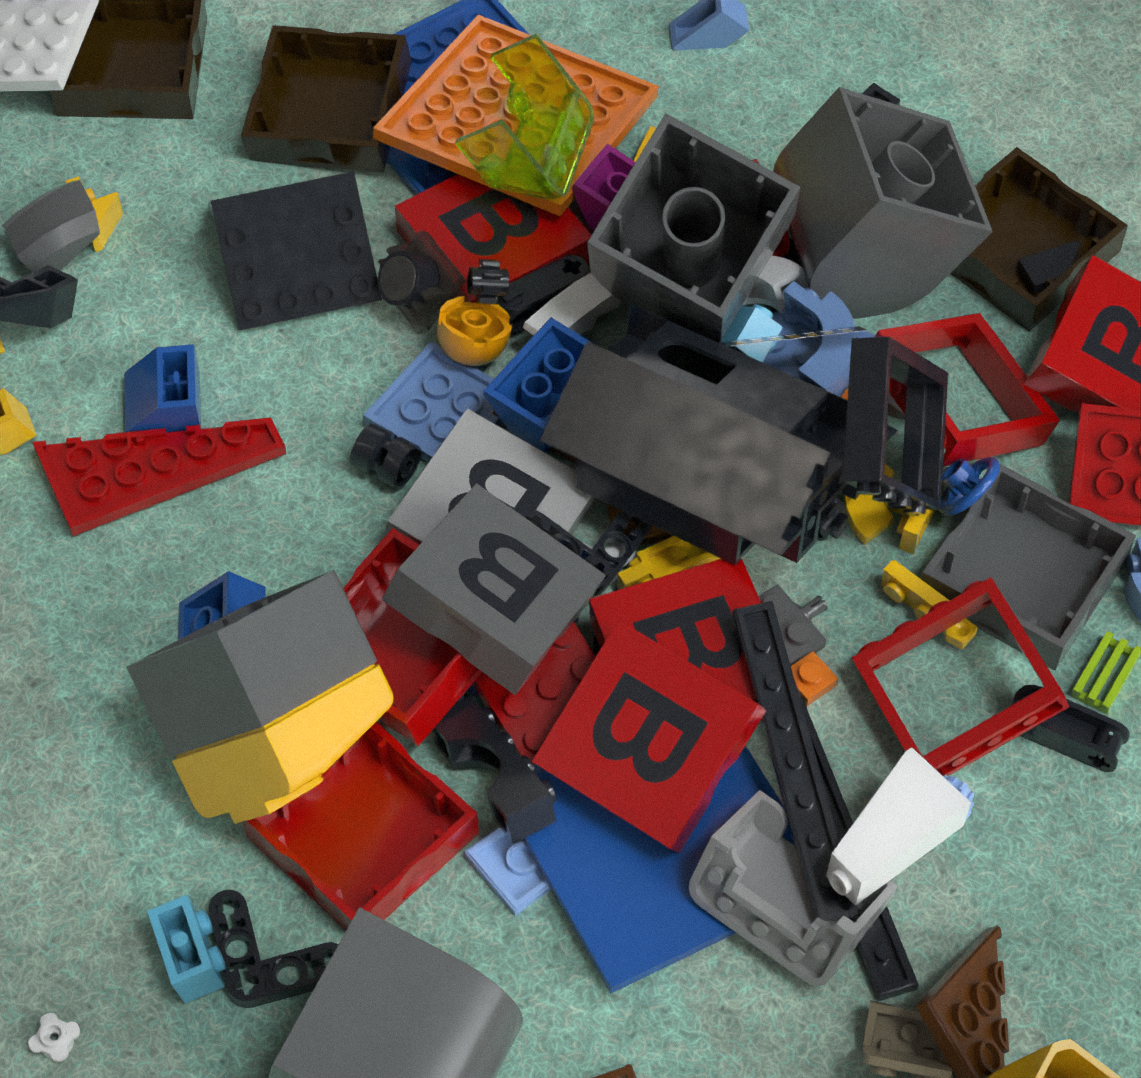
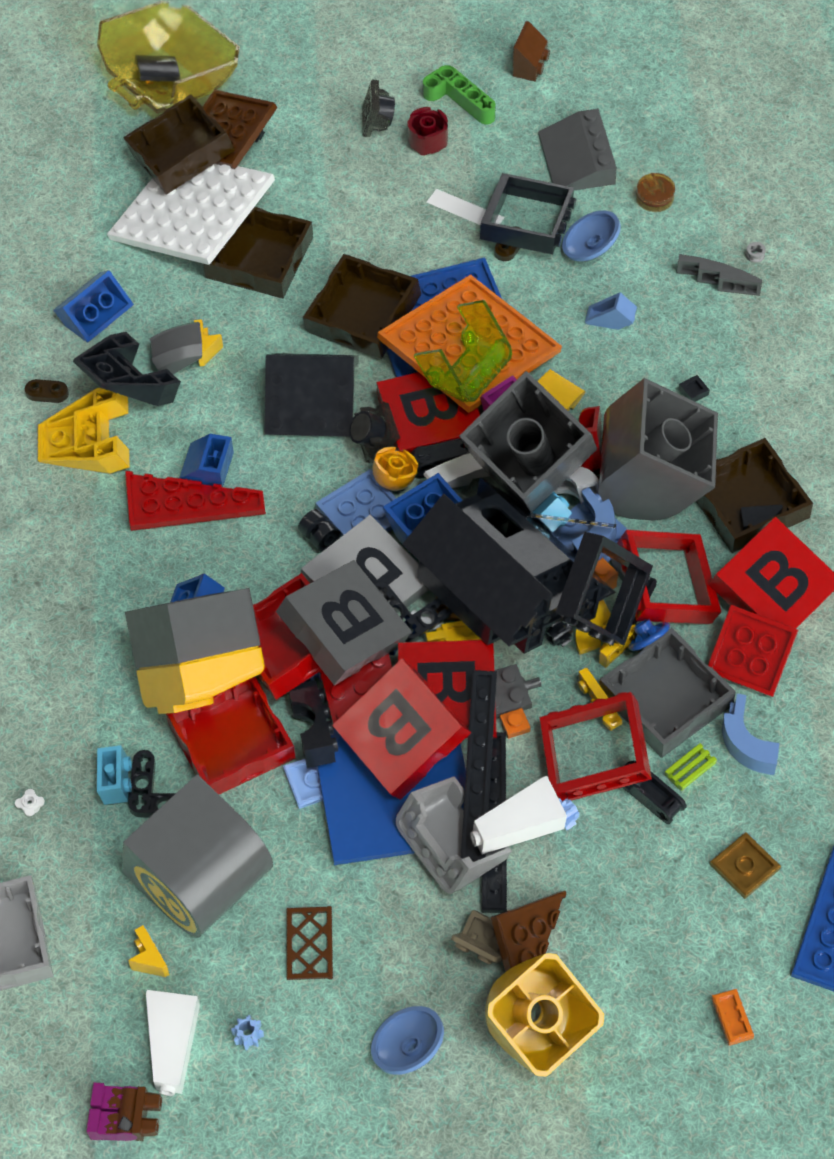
camera: 20 degrees right, 0 degrees up
(487, 281) = (410, 442): black gear -> none

